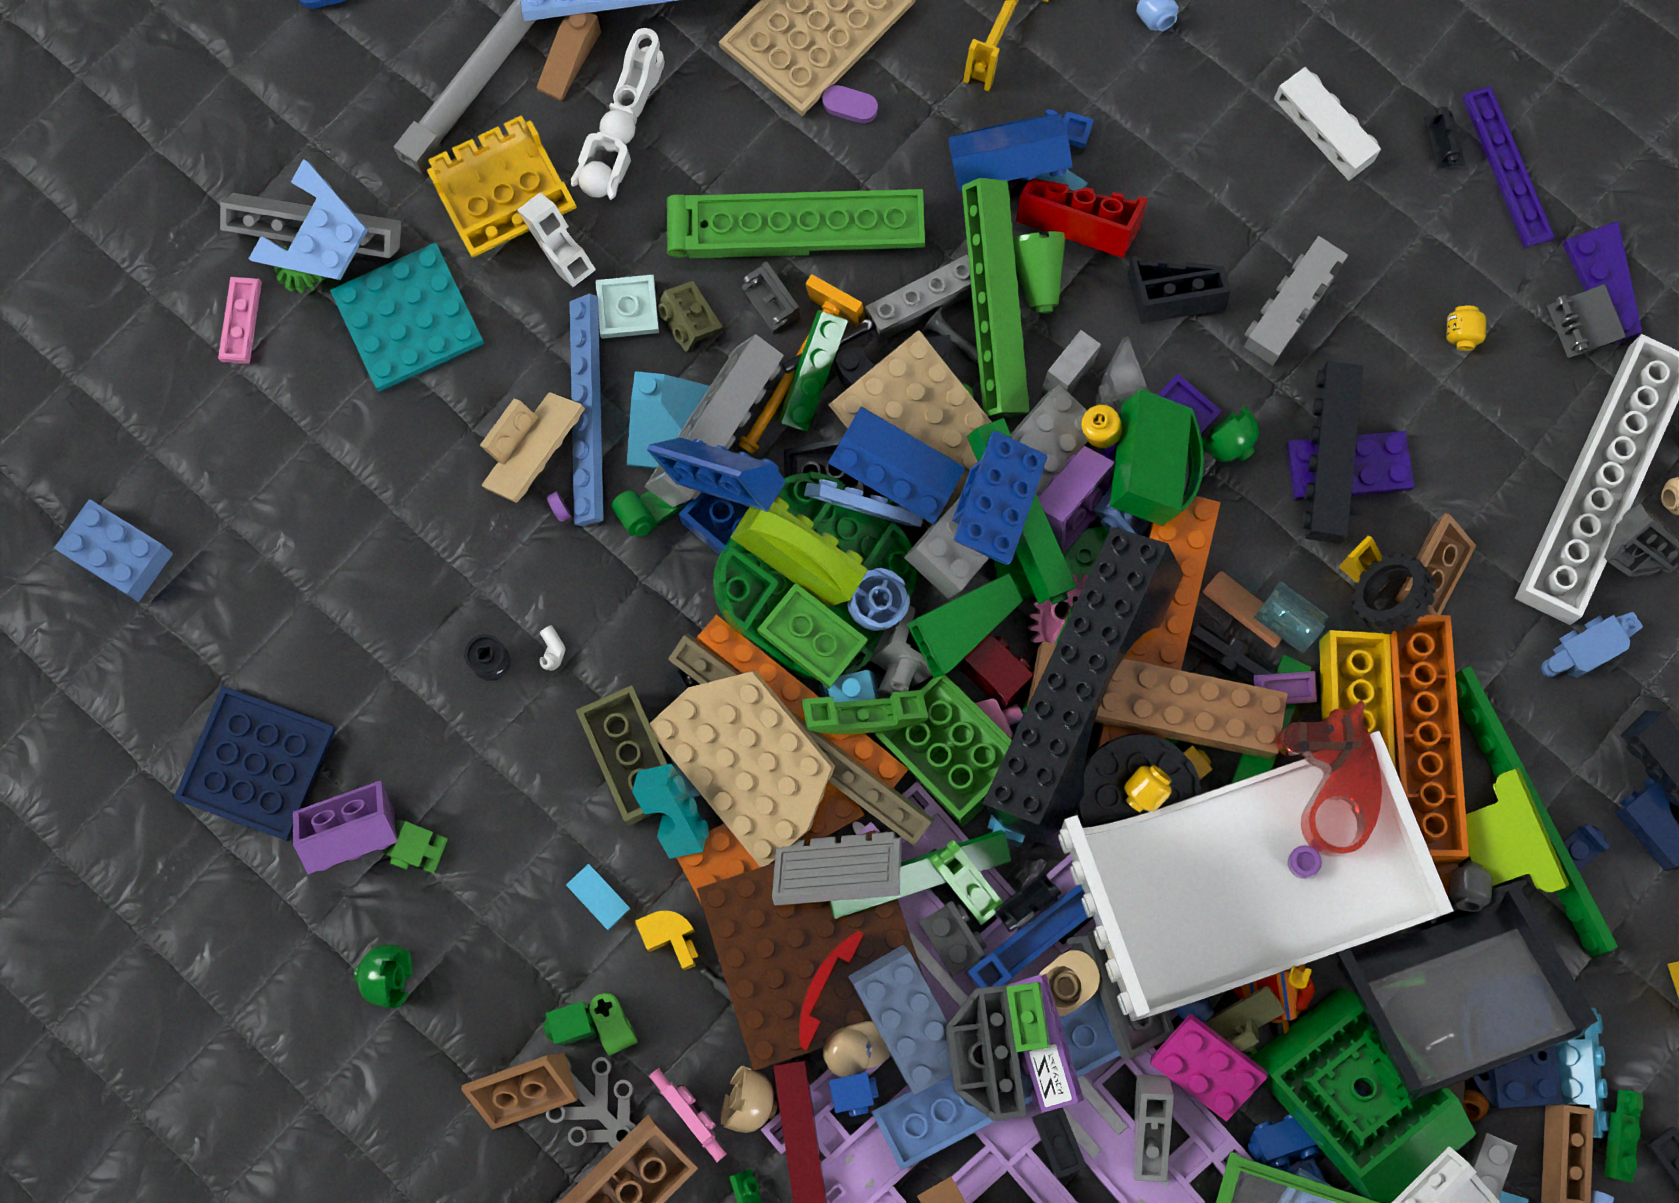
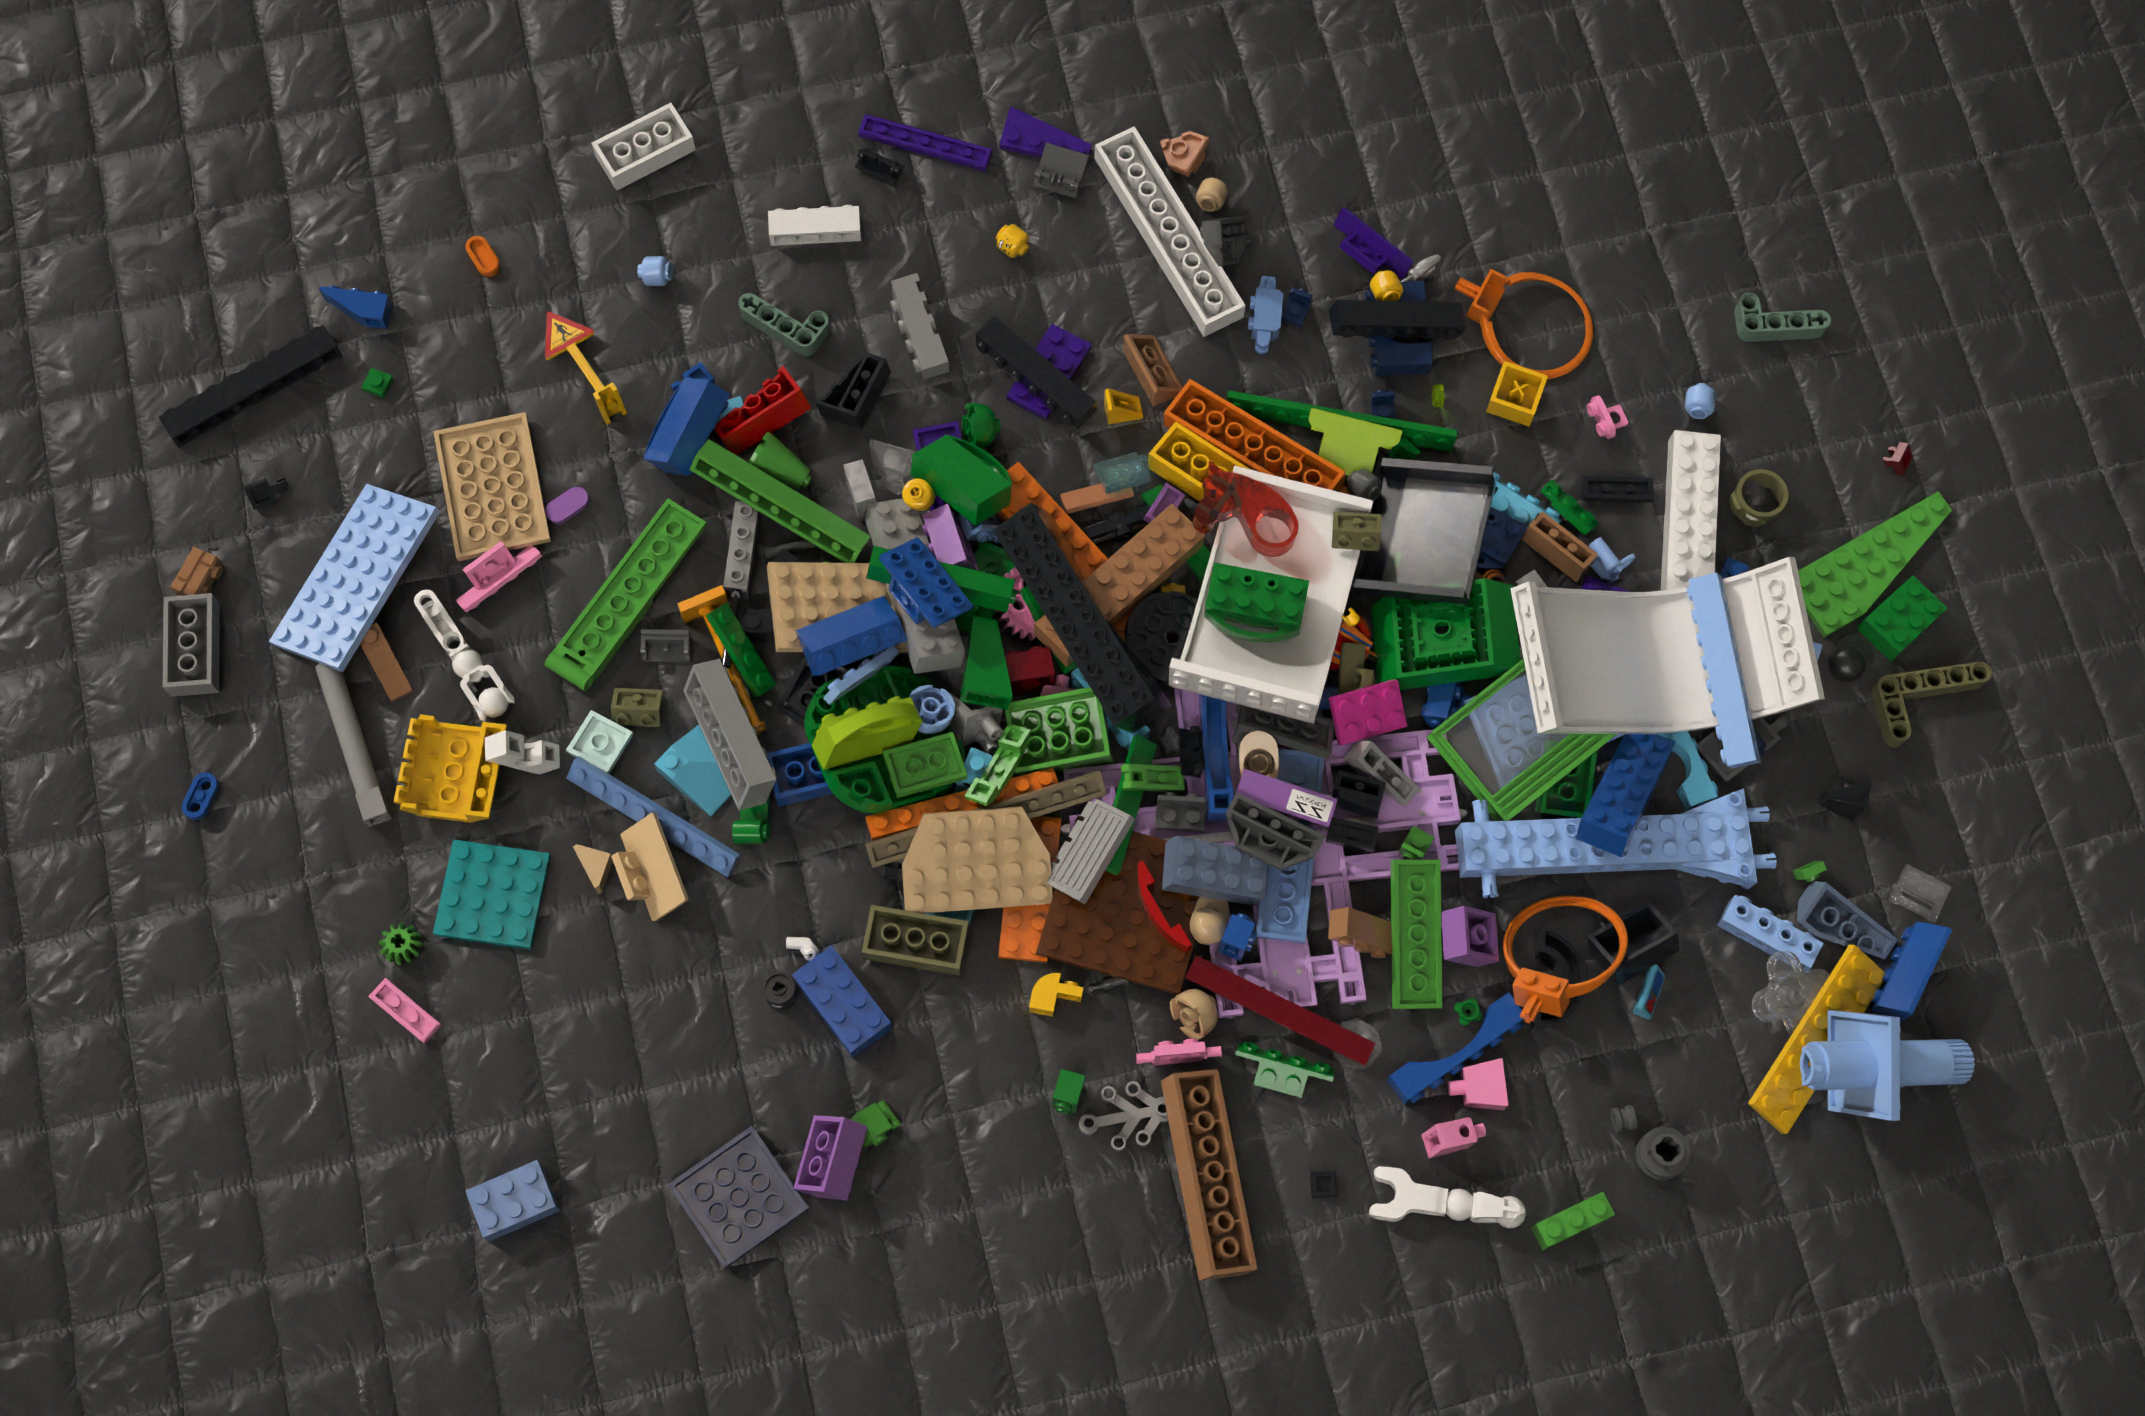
camera: 60 degrees left, 5 degrees down
(283, 220) = (376, 914): light grey brick -> none
(326, 236) = (399, 905): light blue wing -> none
(383, 975) = (948, 1197): green cylinder -> none
(496, 390) = (596, 864): none -> tan slope
(517, 726) = (842, 1001): none -> blue brick
(522, 1090) = (1090, 1152): medium nougat slope -> none
(558, 506) = (707, 878): medium lavender tile -> none
(598, 897) = (994, 1025): medium azure tile -> none
(614, 1029) = (1091, 1066): bright green piece -> none
(664, 791) = (959, 927): teal arch -> none
(719, 471) = (780, 741): blue slope -> none
(729, 84) = (493, 571): none -> bright pink bracket
(1028, 1017) = (1265, 792): bright green plate -> none
(1107, 1119) = (1358, 794): none -> black brick
(1148, 788) = (1172, 626): yellow head -> none
(1196, 165) = (782, 321): none -> sand green beam
(1238, 860) = (1255, 601): none -> green piece
(1304, 862) = (1283, 565): medium lavender tile -> none
(1404, 915) = (1356, 531): none -> olive bracket
(1409, 609) = (1171, 400): black tyre -> none
(1547, 905) = (1404, 450): none -> green plate
(1627, 674) = (1297, 307): none -> dark blue bracket
(1643, 898) = (1438, 395): none -> clear neon green tile

